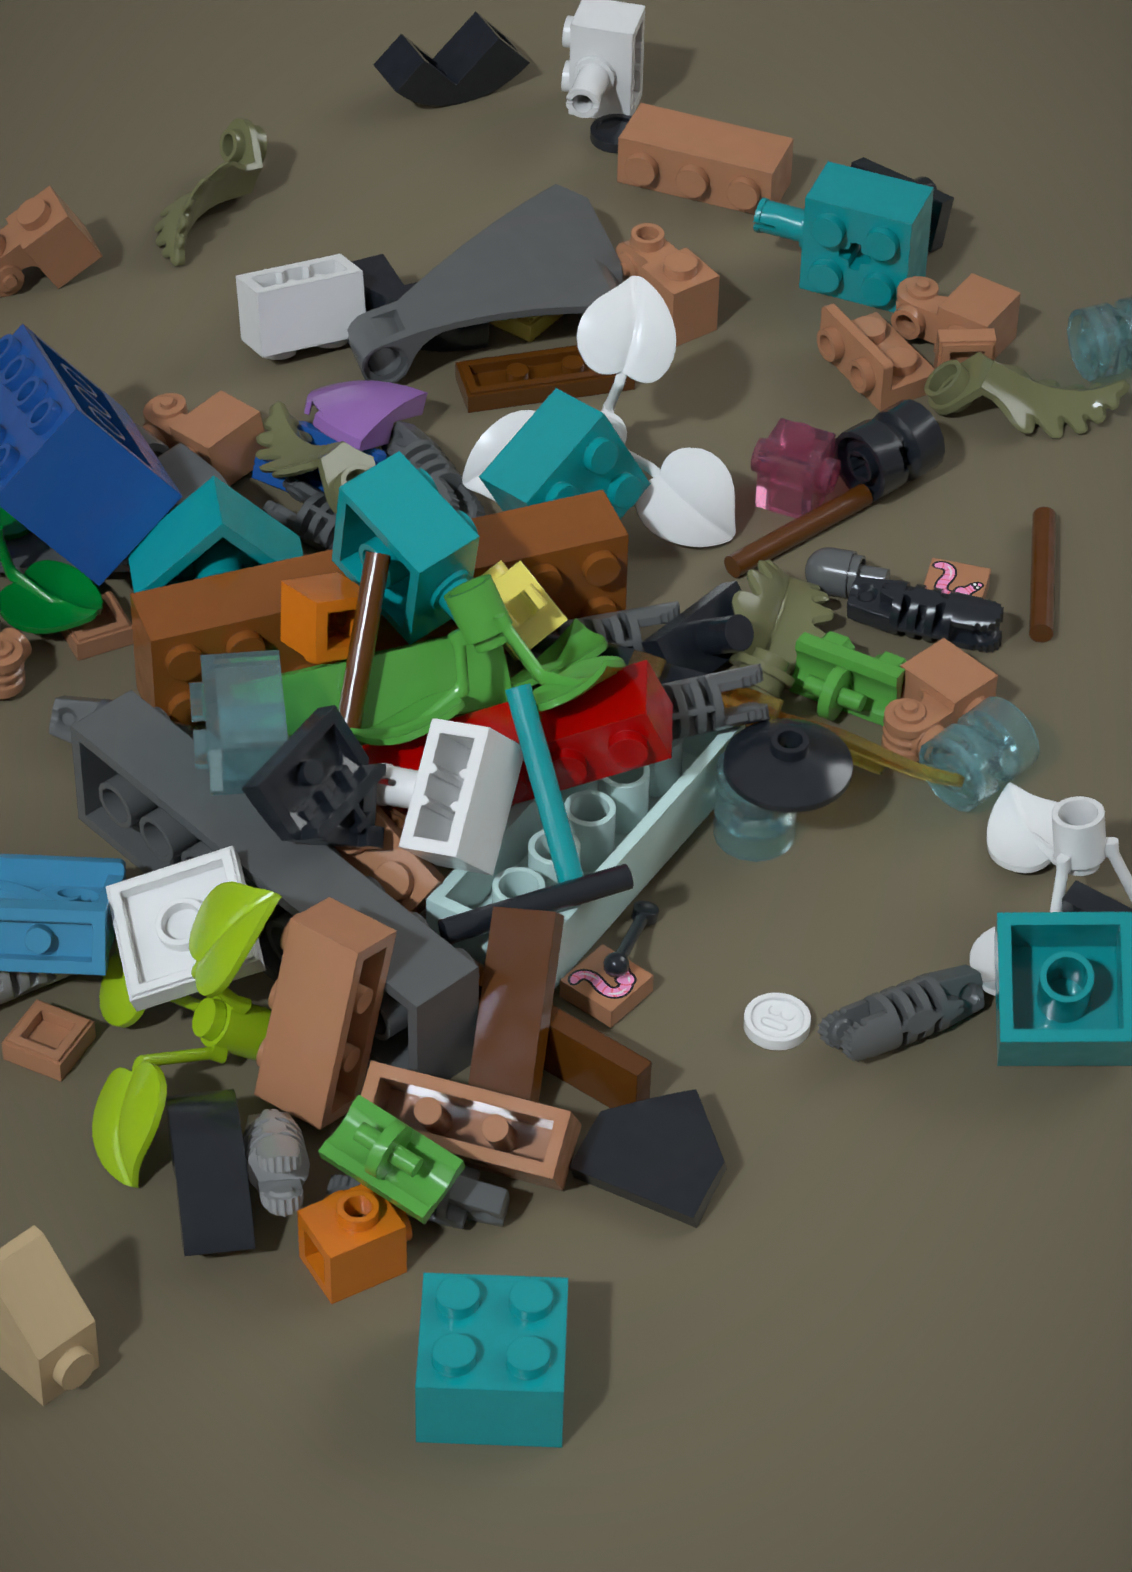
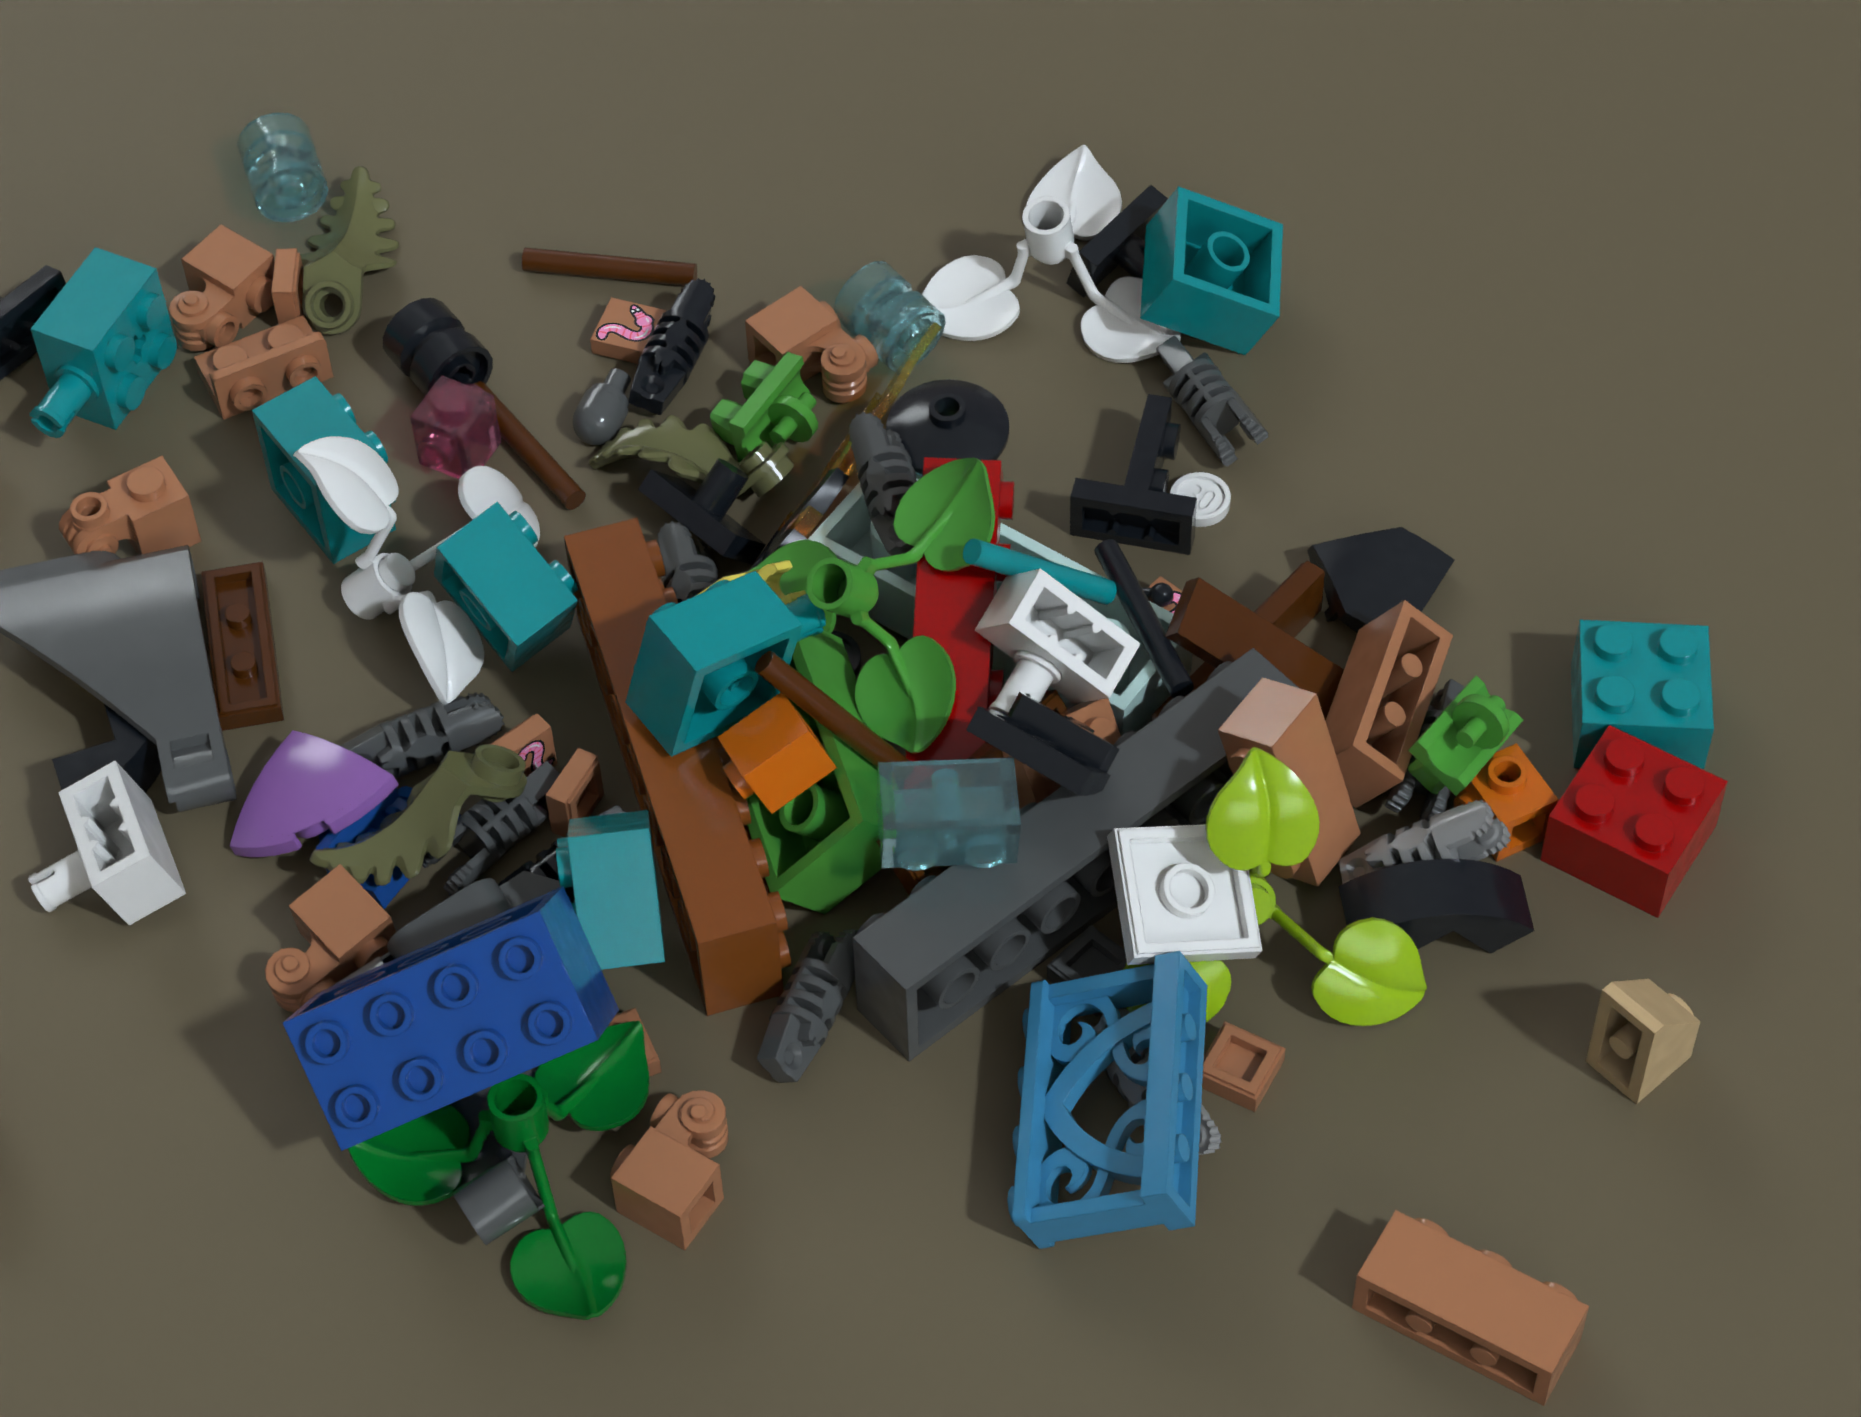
camera: 85 degrees left, 10 degrees up
(320, 1343) = (1633, 820): none -> red brick
(722, 377) = (286, 426): none -> teal brick
(781, 957) = (1141, 509): none -> black bracket

